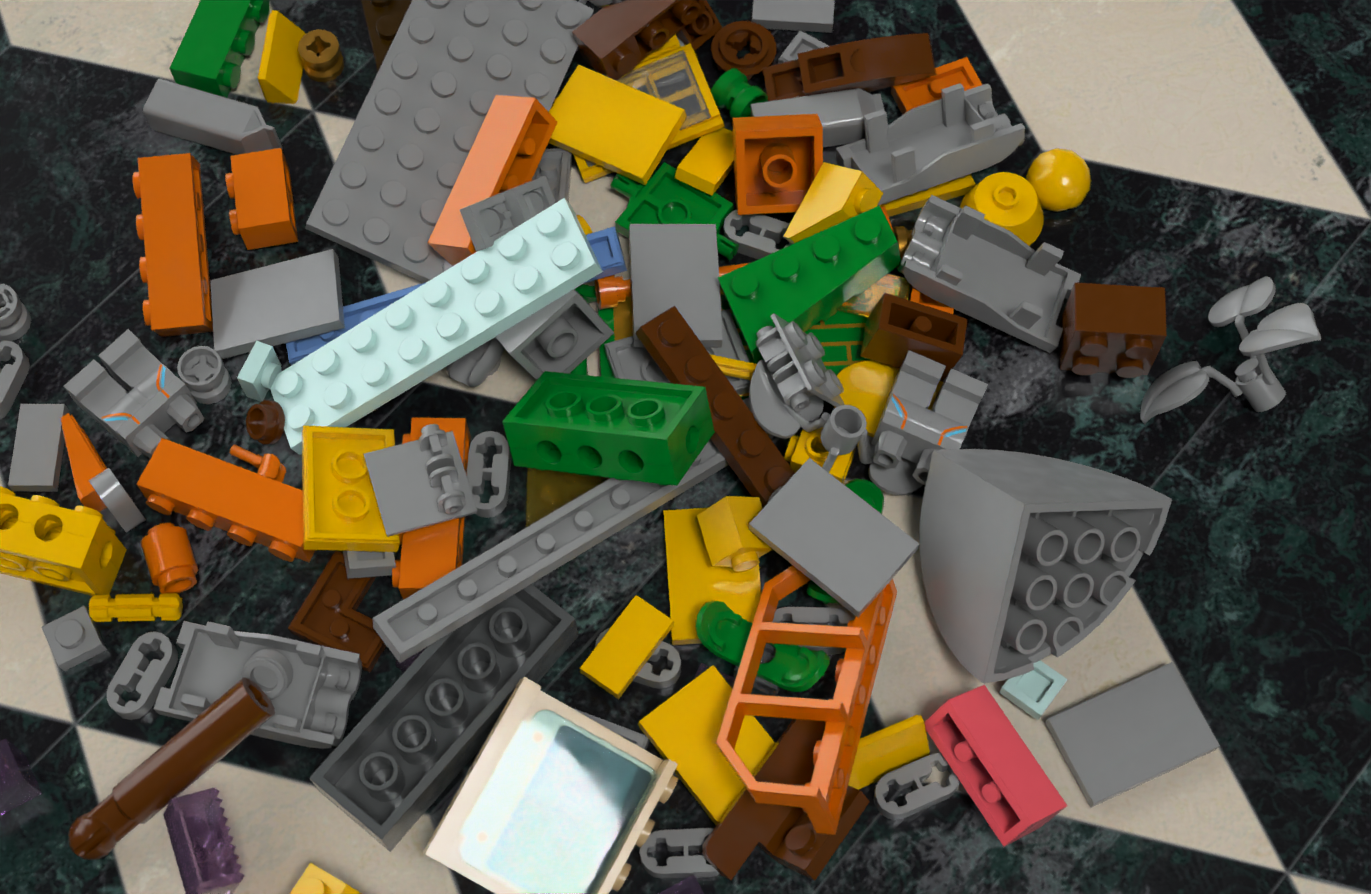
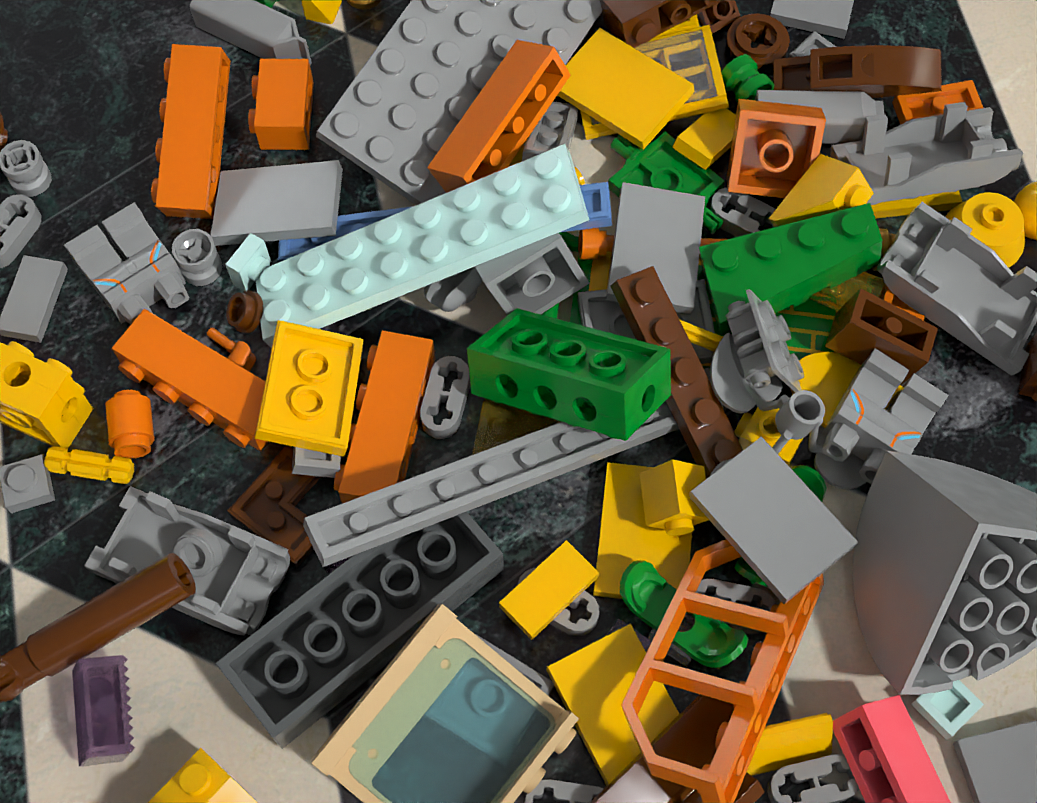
camera: 10 degrees right, 0 degrees up
(84, 462) = (73, 334): orange slope -> none
(117, 500) = (90, 359): light grey beam -> none
(133, 672) = (81, 531): light grey beam -> none
(420, 482) = (378, 393): light grey hinge -> none
(505, 211) = (506, 148): light grey slope -> none

